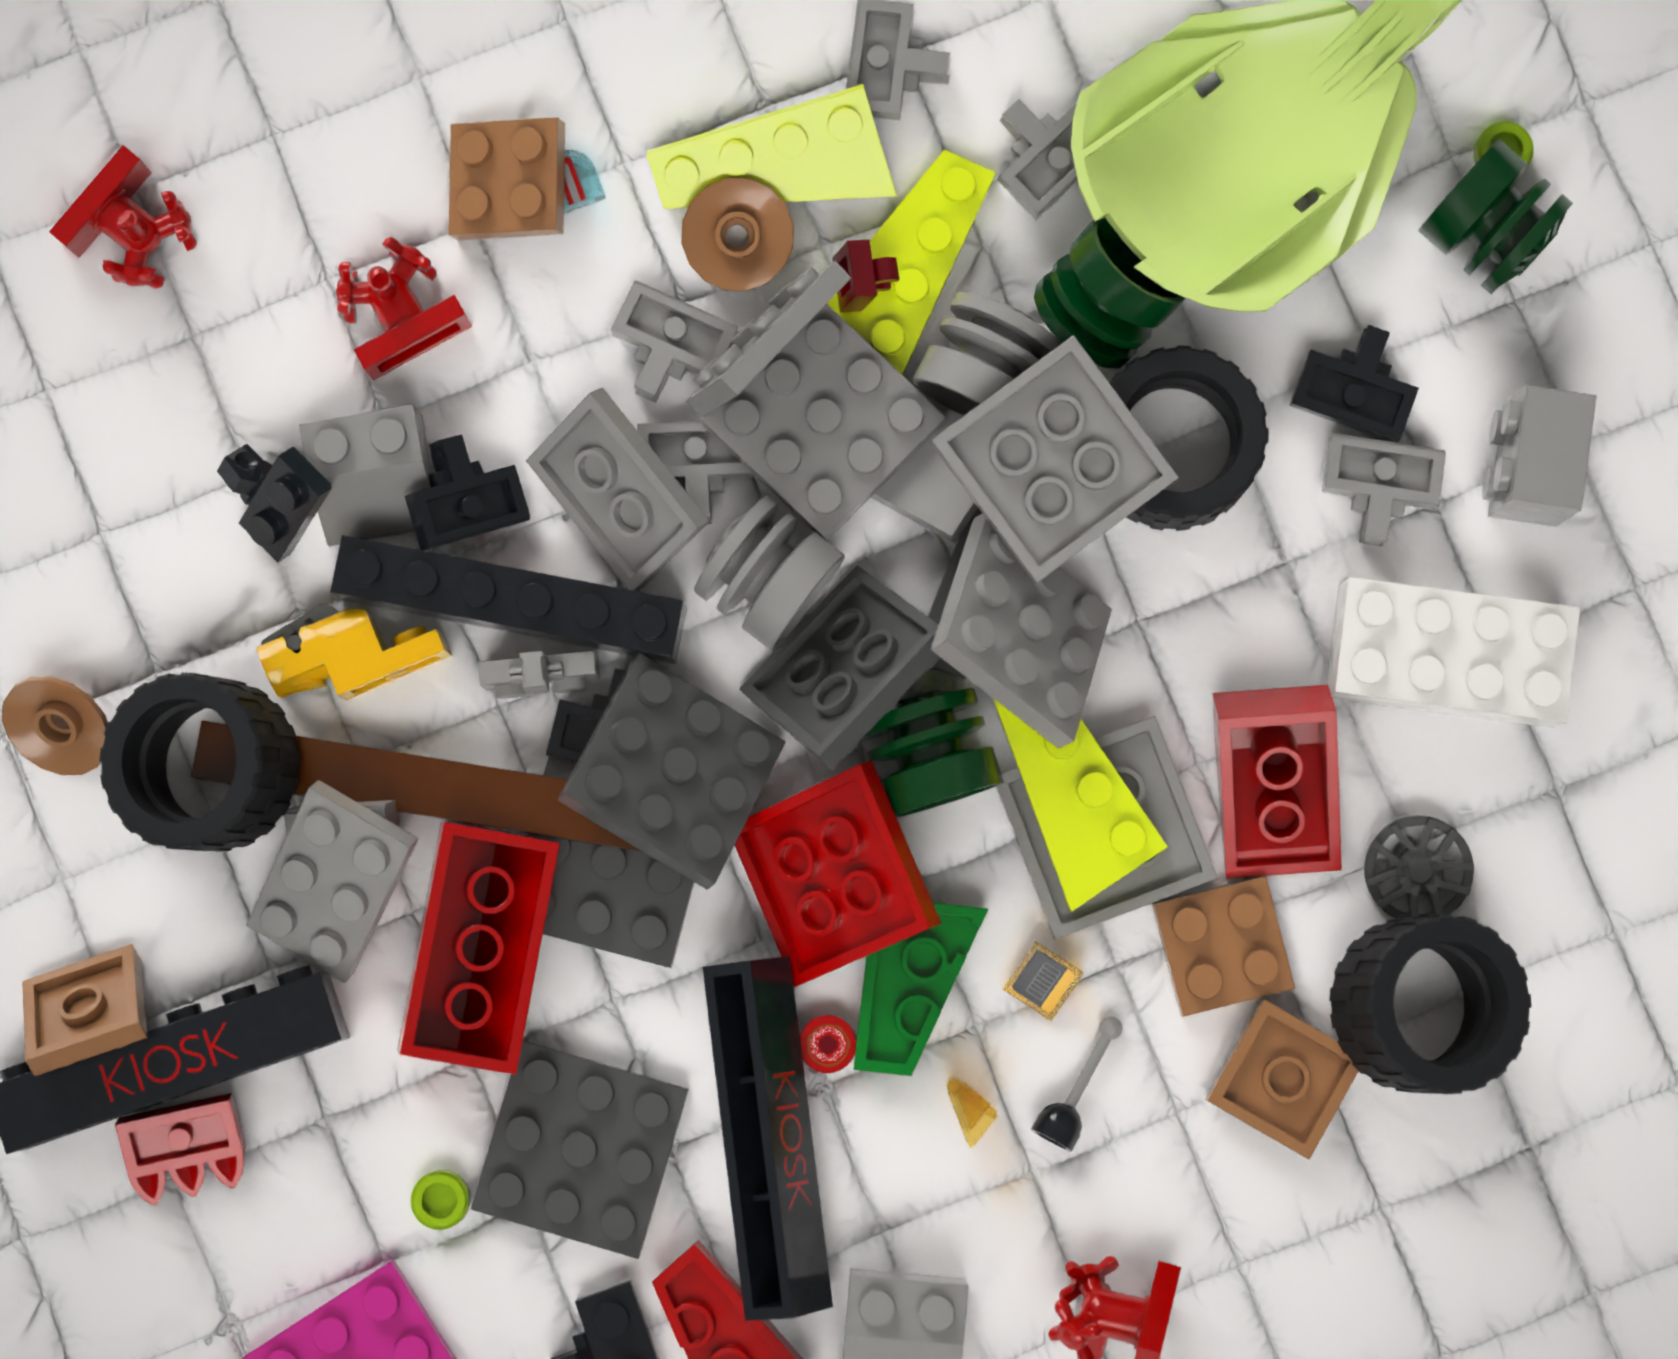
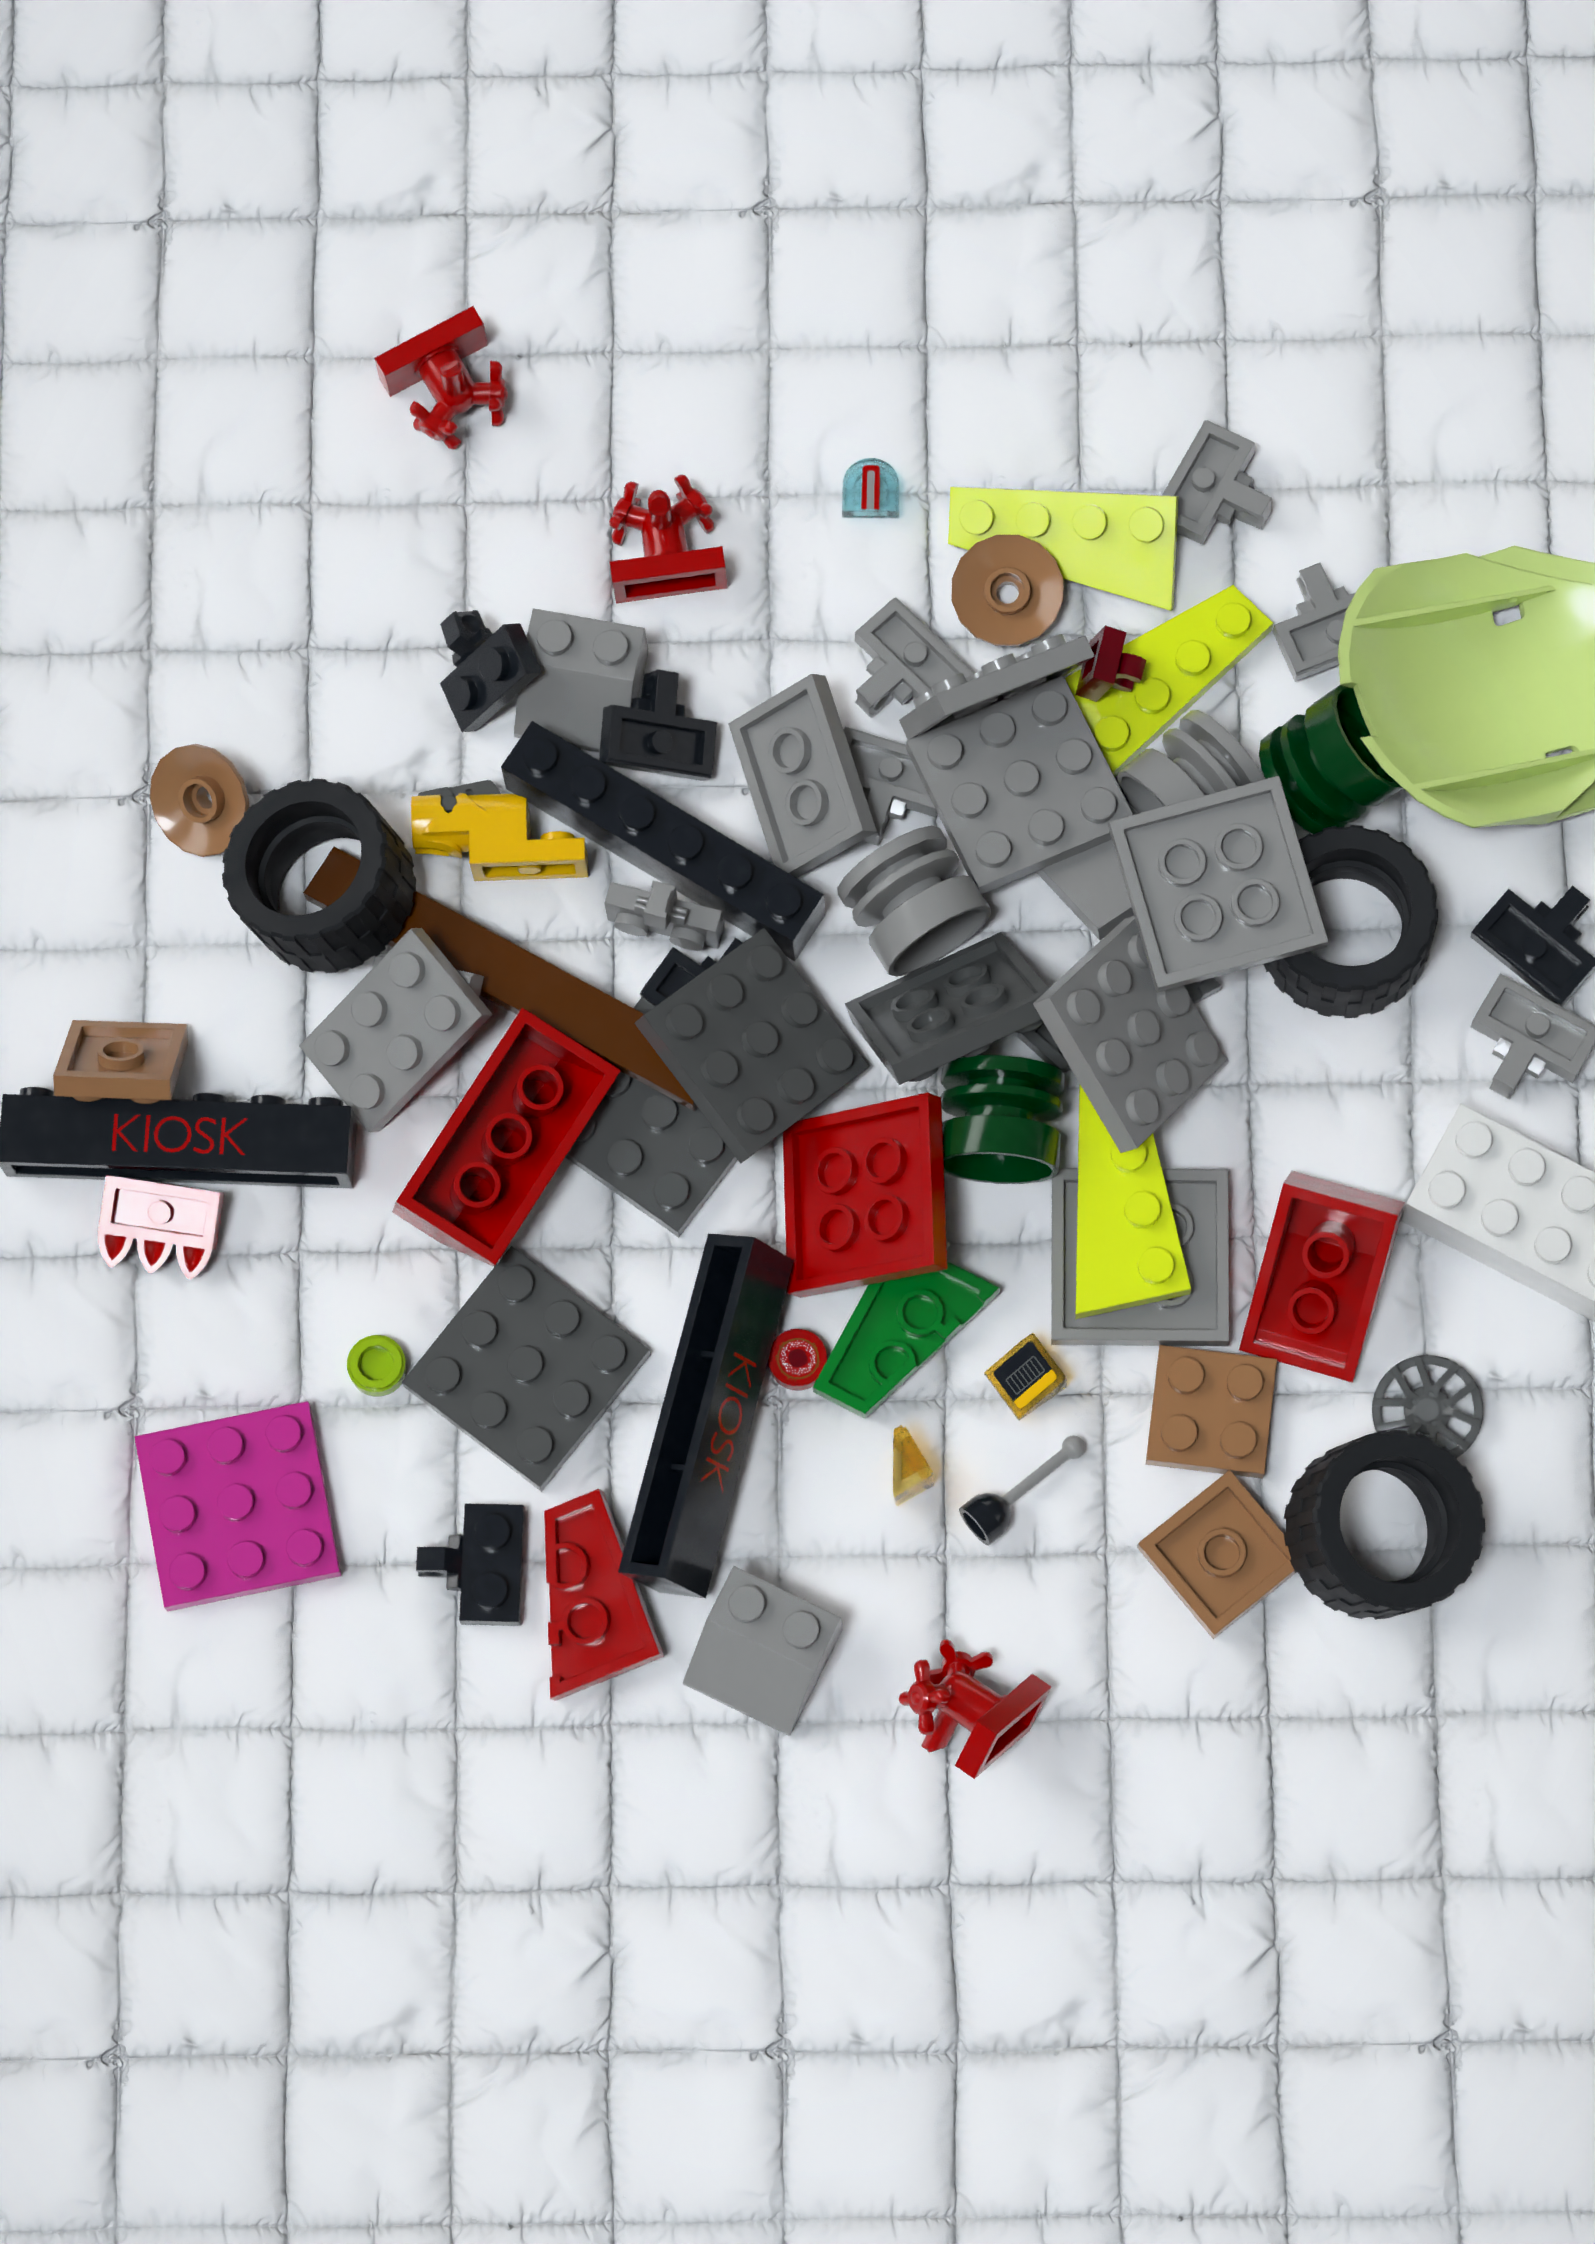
camera: 25 degrees right, 10 degrees down
(507, 178) = (813, 465): medium nougat plate -> none

